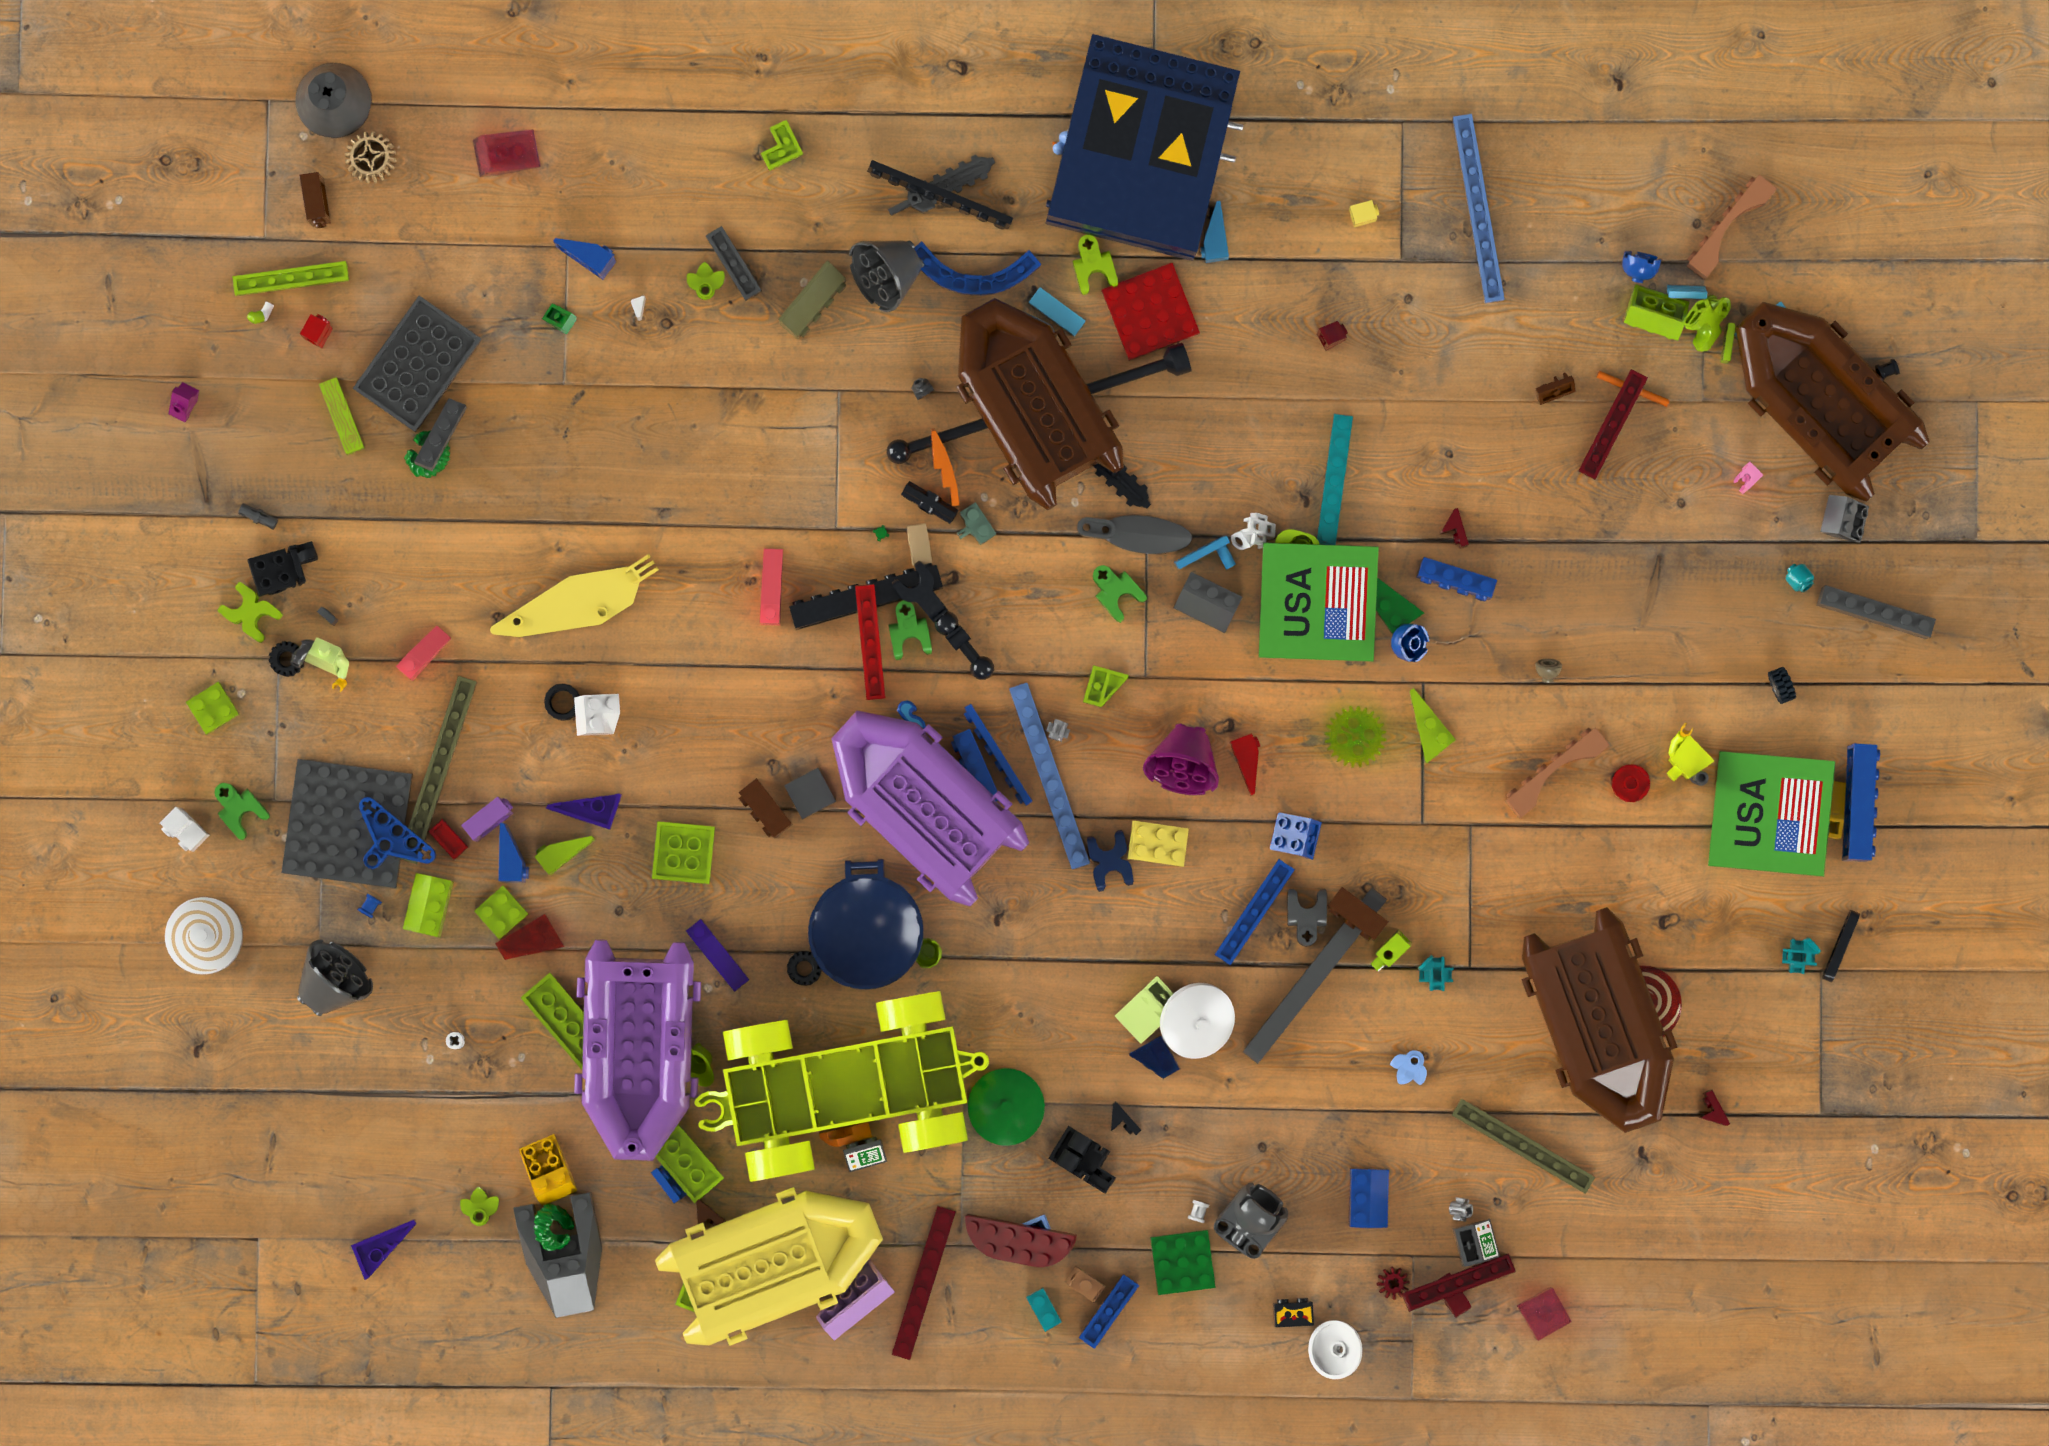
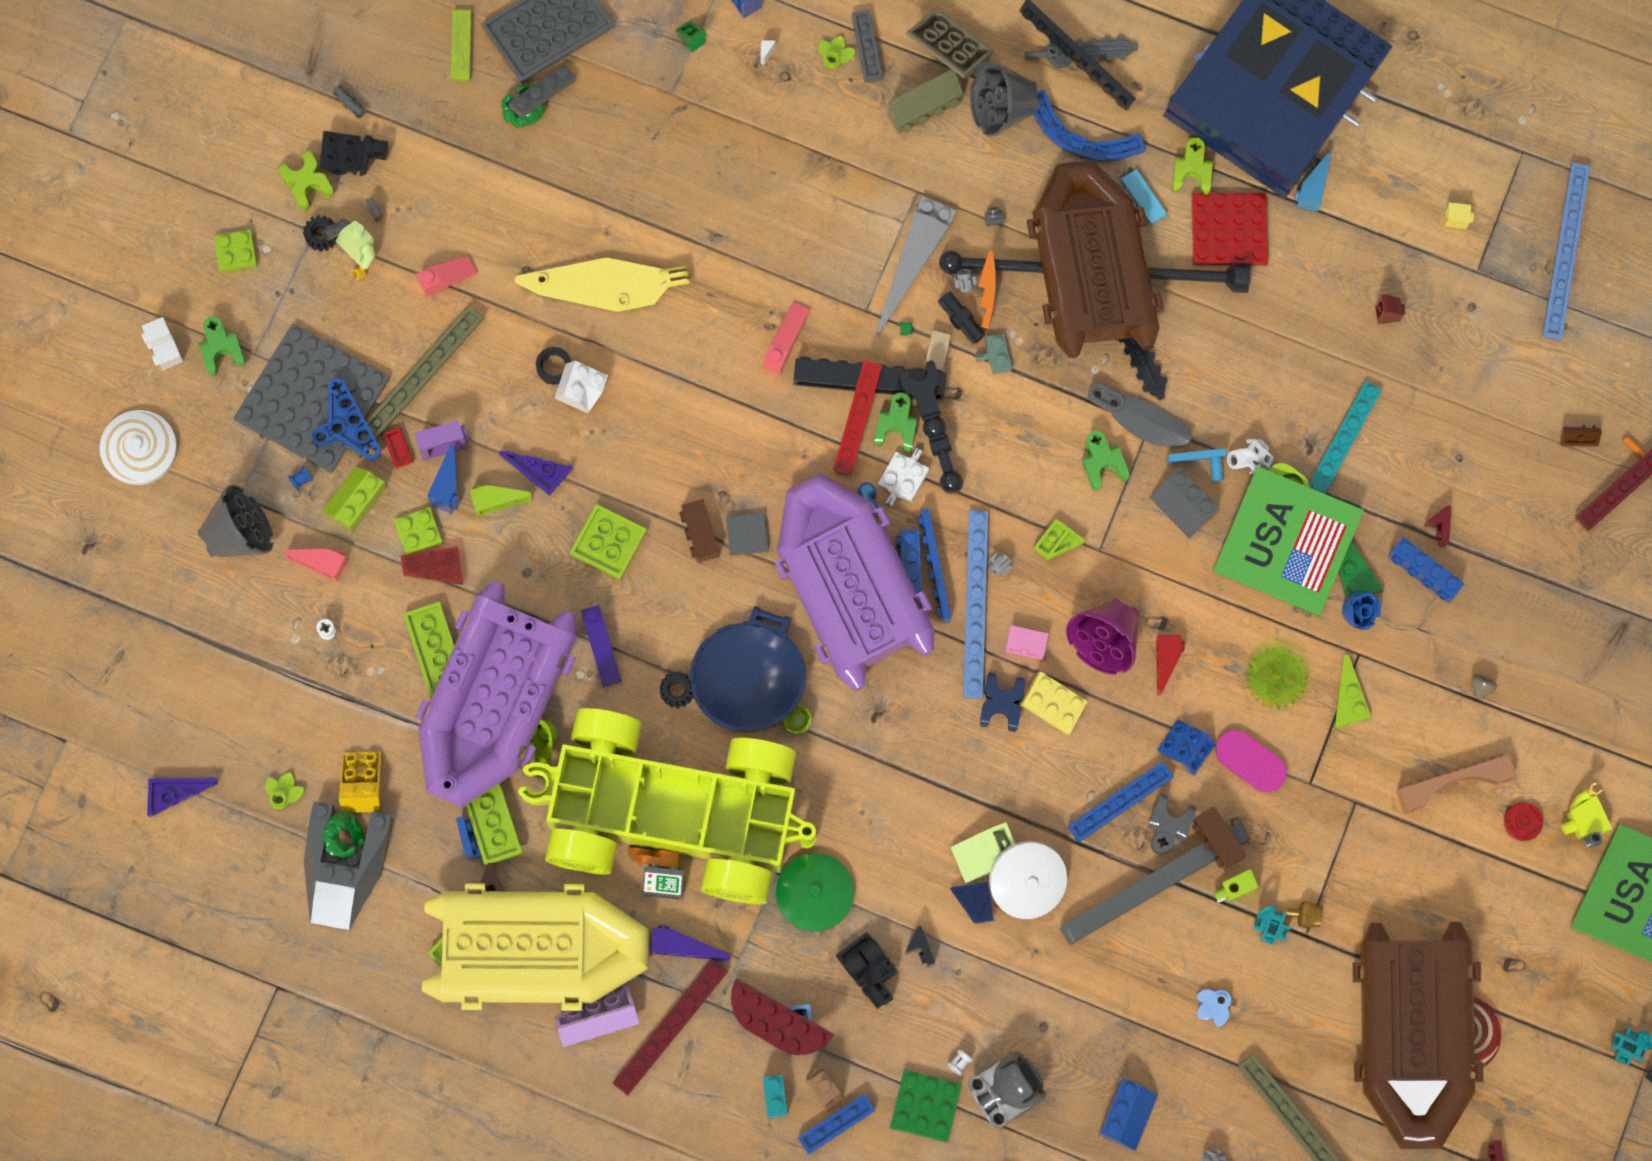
camera: 20 degrees right, 10 degrees down
(427, 976) = (323, 561): none -> coral slope
(814, 234) = (950, 43): none -> dark tan slope
(863, 429) = (926, 231): none -> light grey plate
(894, 1206) = (673, 943): none -> dark purple slope
(919, 464) = (965, 280): none -> light grey gear
(935, 680) = (903, 477): none -> white plate
(1111, 795) = (1026, 642): none -> bright pink hinge
(1360, 825) = (1251, 761): none -> dark pink tile
(1464, 949) = (1308, 915): none -> pearl gold piece

